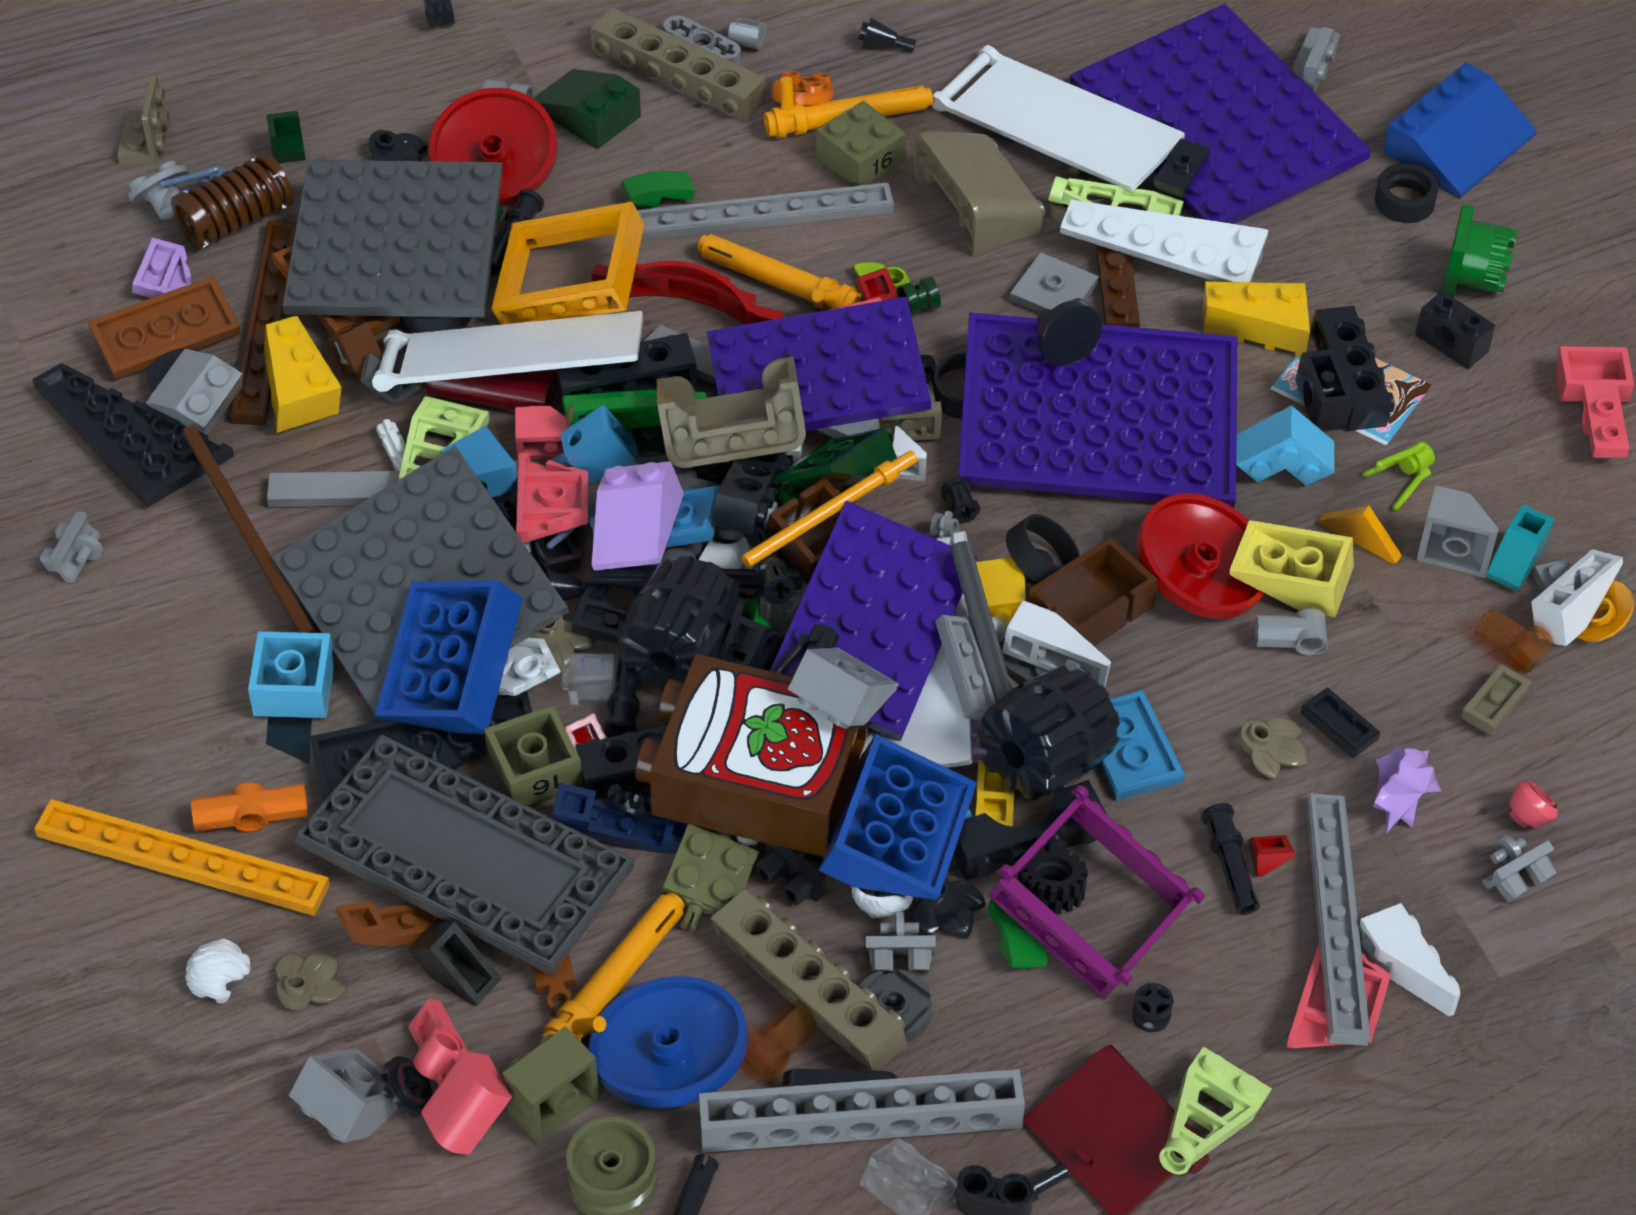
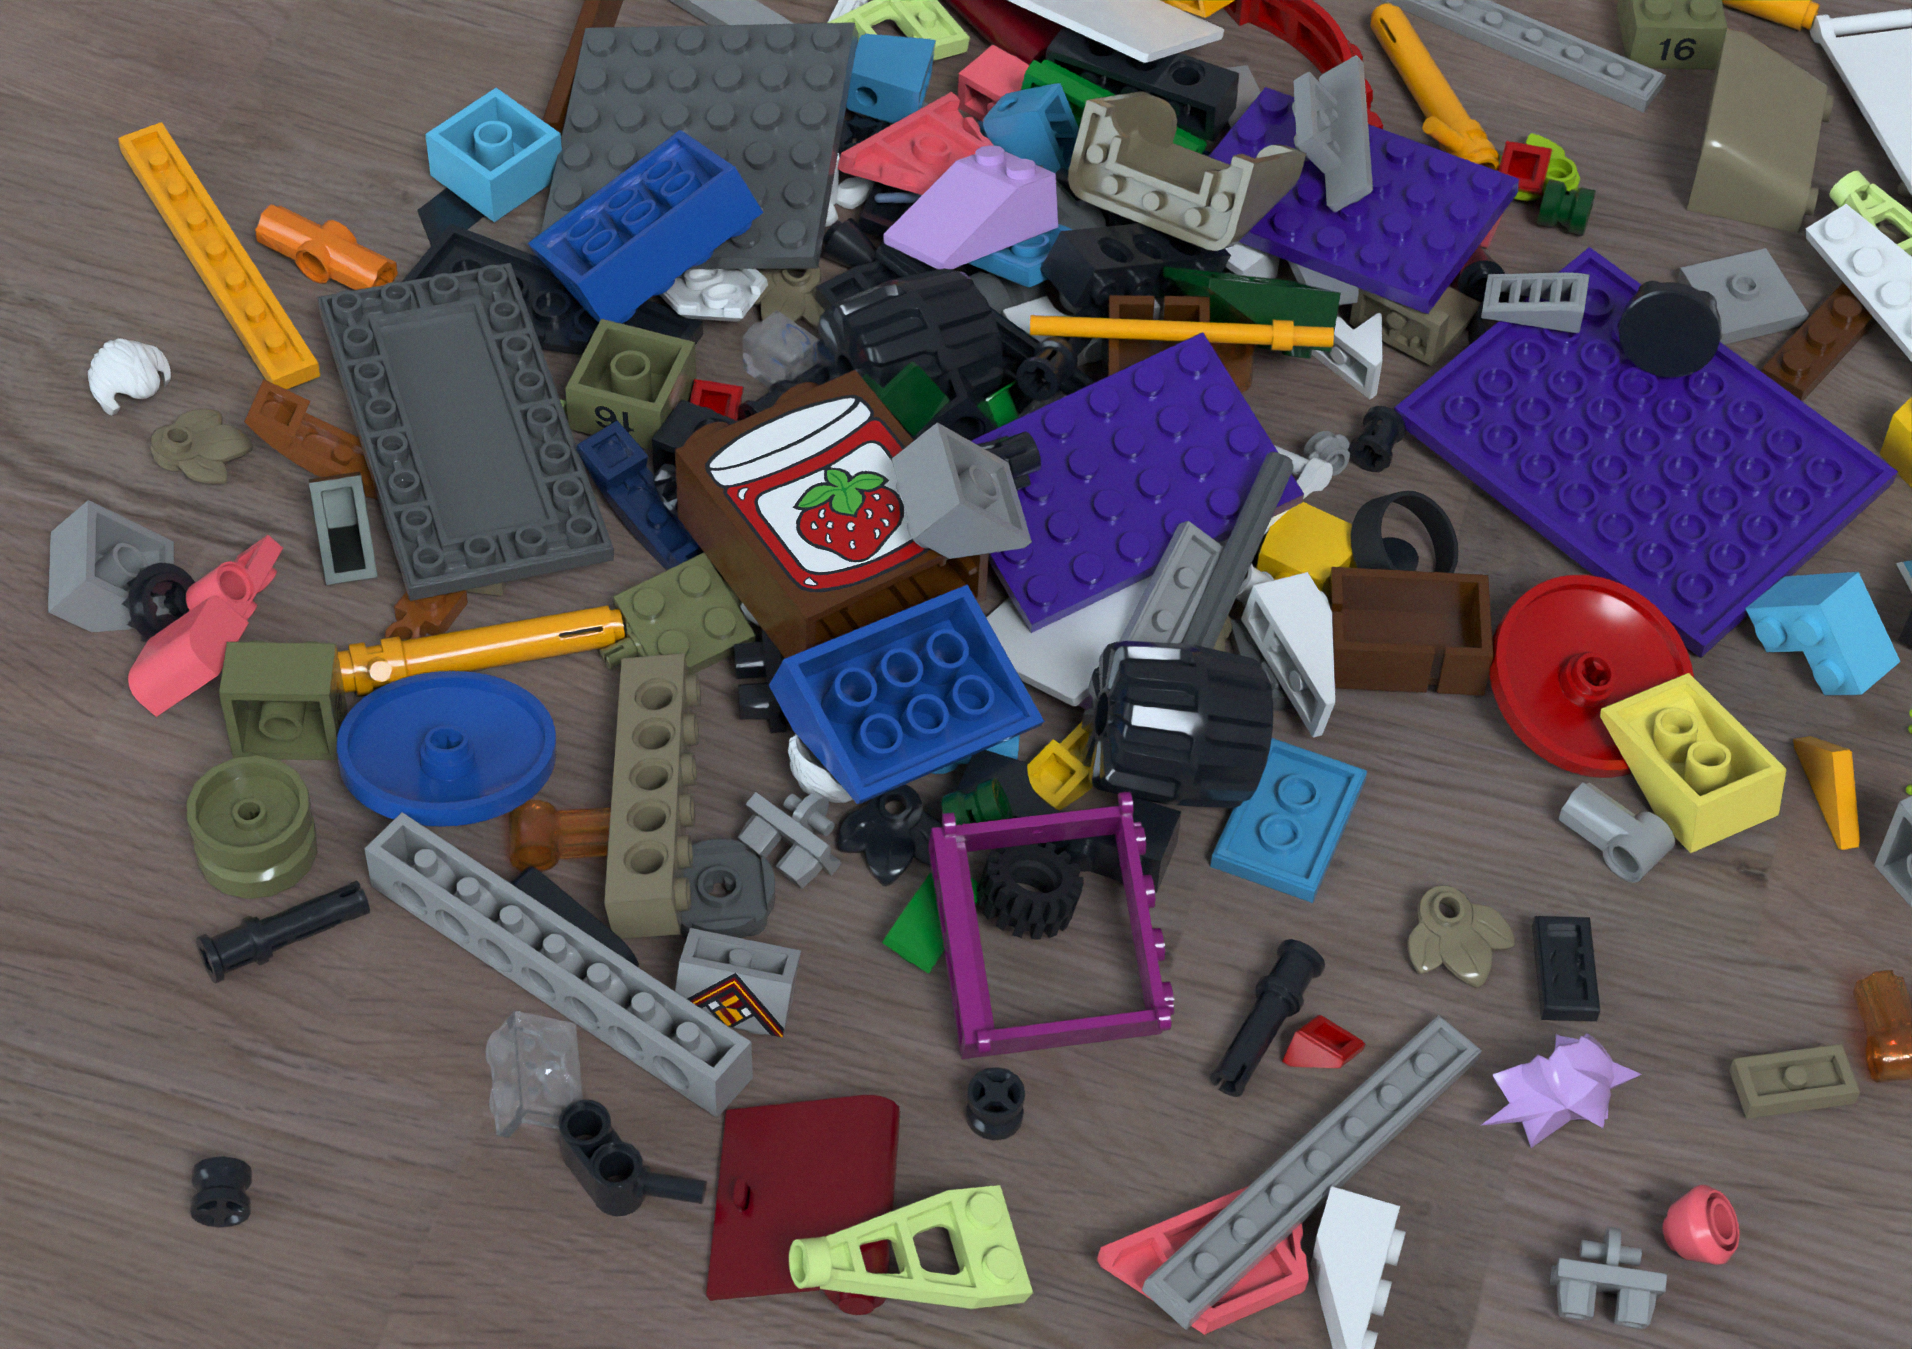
camera: 40 degrees right, 0 degrees up
(732, 646) = (910, 397): none -> dark green panel
(791, 331) = (1335, 130): none -> light grey bracket
(966, 1043) = (739, 980): none -> light grey brick
(994, 856) = (982, 805): none -> dark green wheel
(995, 350) = (1557, 287): none -> light grey slope

